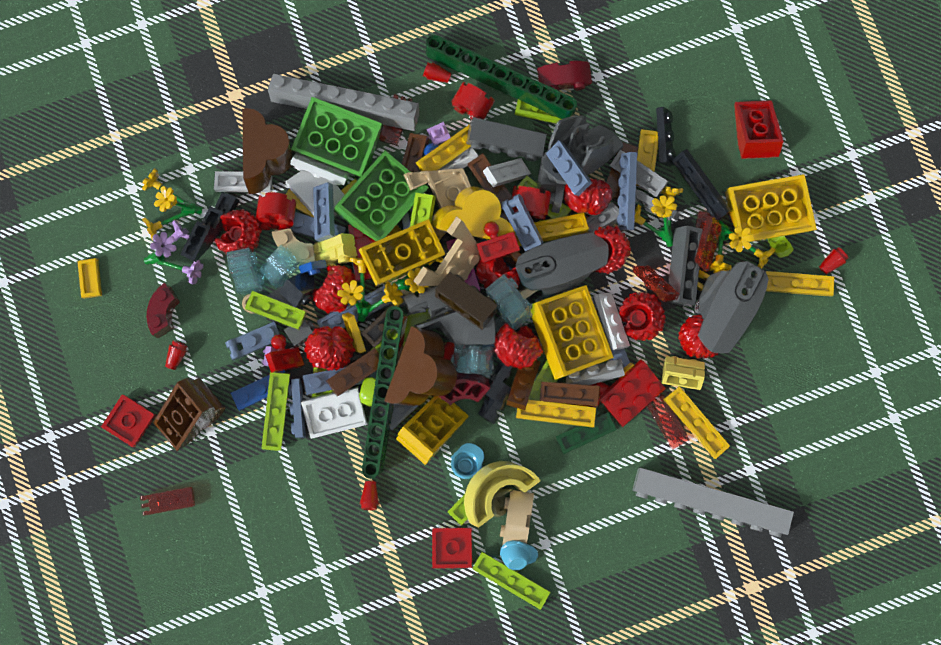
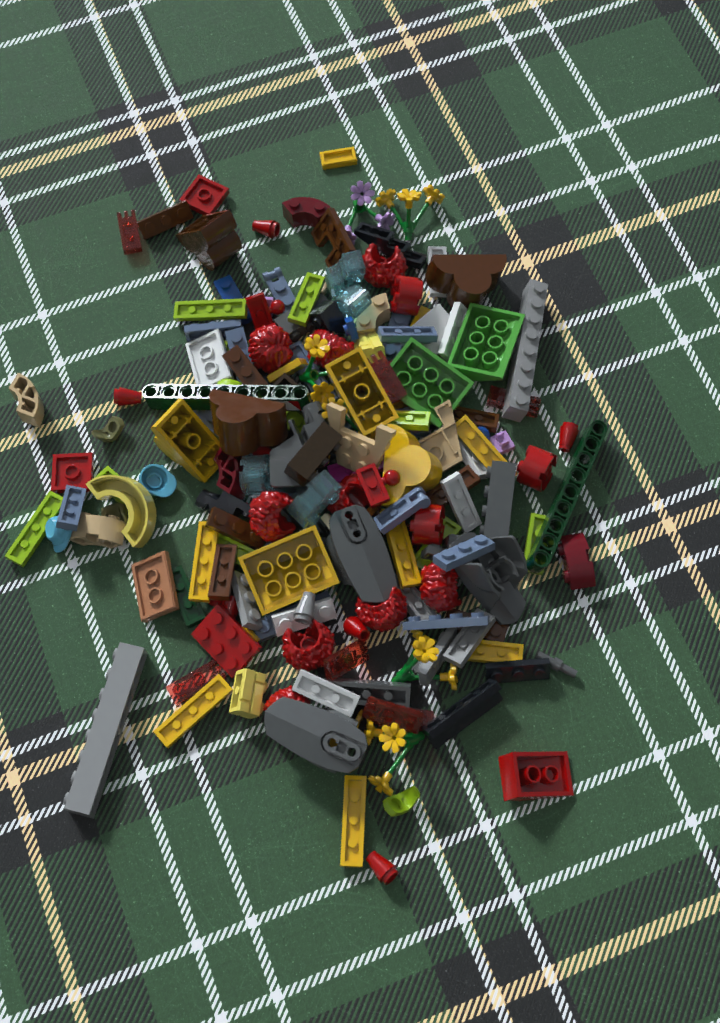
camera: 85 degrees right, 15 degrees down
(156, 462) = (165, 219): none -> reddish brown plate
(185, 284) = (332, 229): none -> reddish brown plate
(371, 595) = (30, 405): none -> tan brick
(378, 230) = (387, 377): none -> clear red hinge
(407, 512) = (110, 431): none -> olive hair
(498, 542) = (71, 508): none -> sand blue plate
(576, 461) = (155, 586): none -> nougat tile
(614, 316) = (305, 610): none -> light grey cone
(624, 274) = (356, 629): none -> red cone
(658, 102) = (558, 665): none -> dark grey bar
(691, 299) = (325, 693): none -> white plate
(772, 207) = (437, 788): yellow slope -> none

